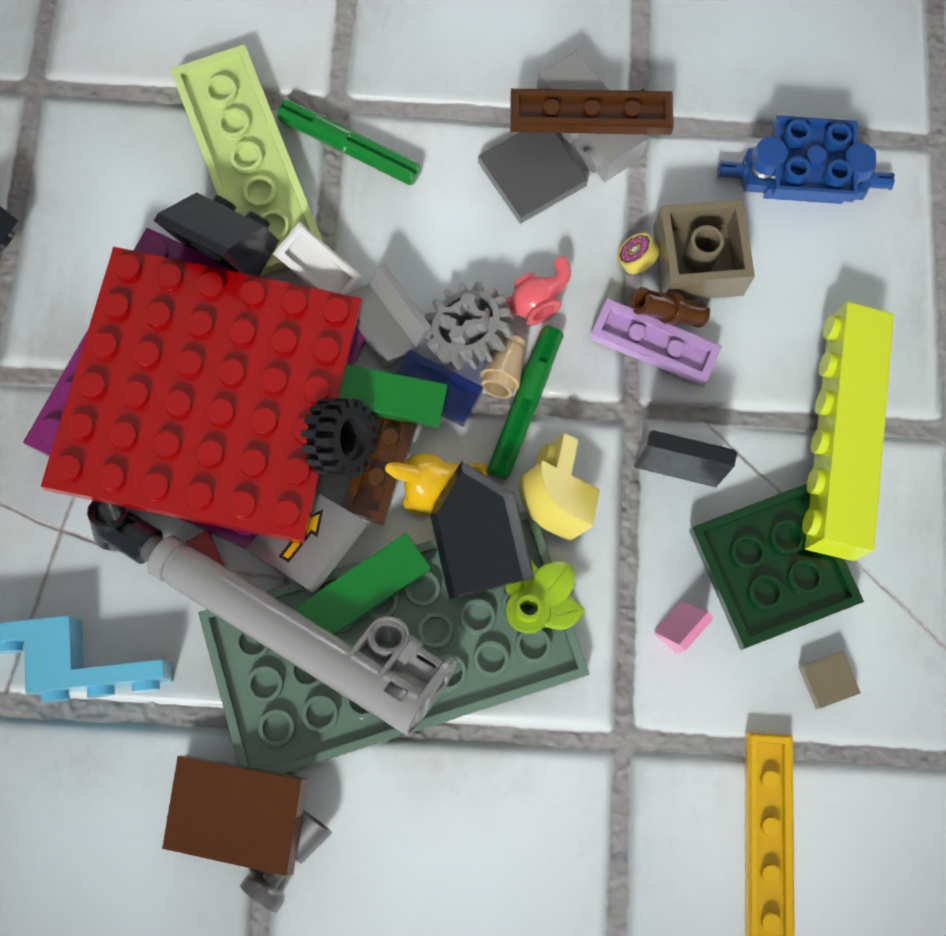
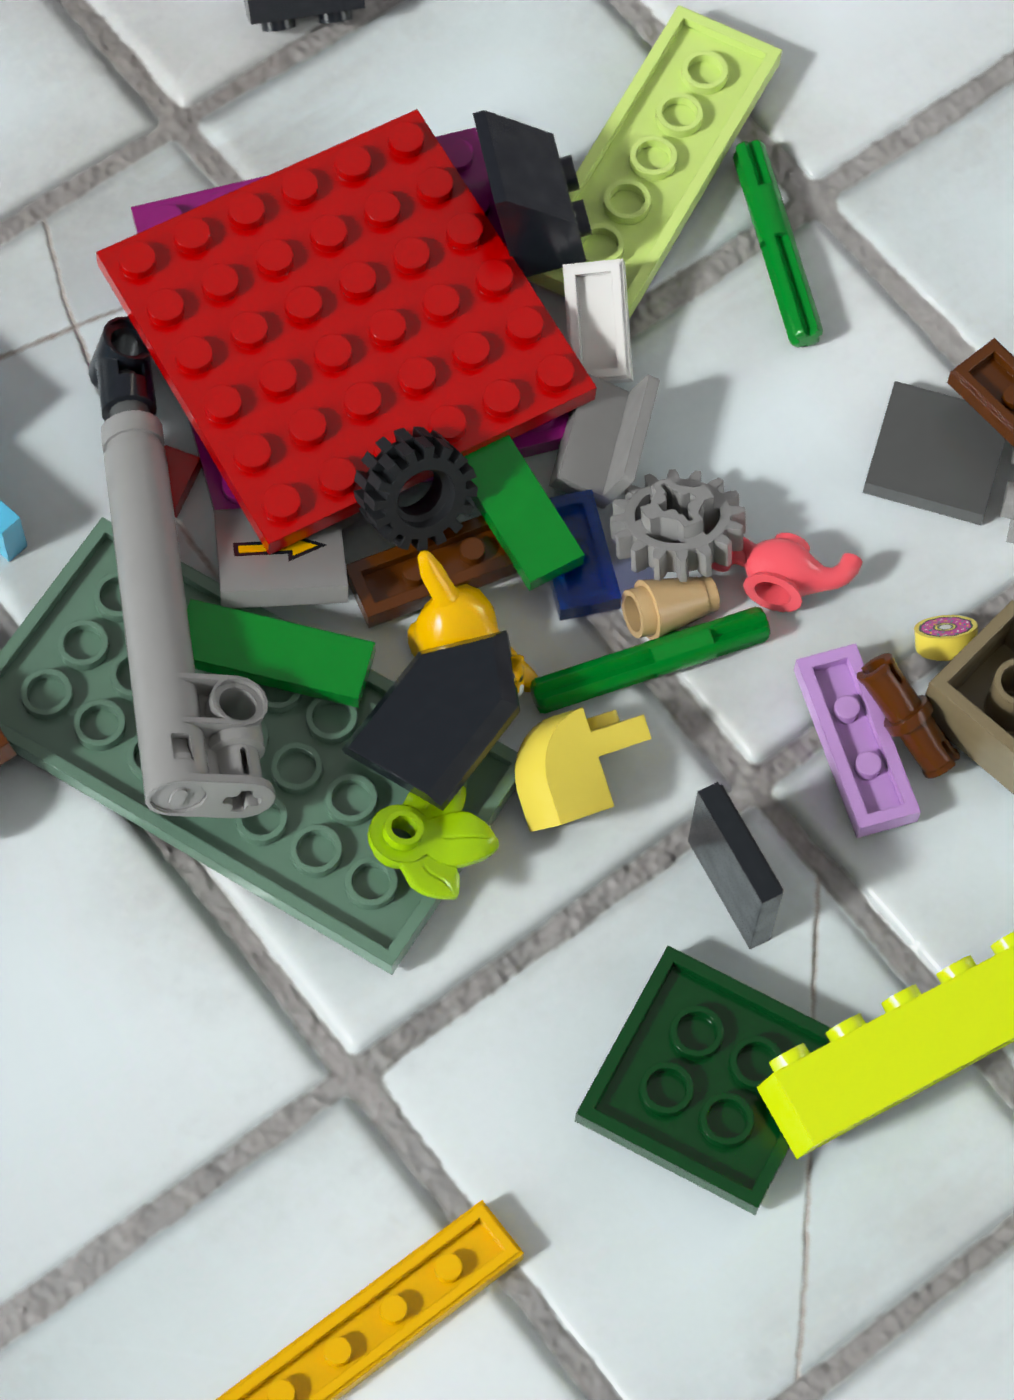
camera: 50 degrees right, 10 degrees down
(682, 626) = (542, 1036): bright pink slope -> none
(829, 680) = (630, 1249): dark tan tile -> none

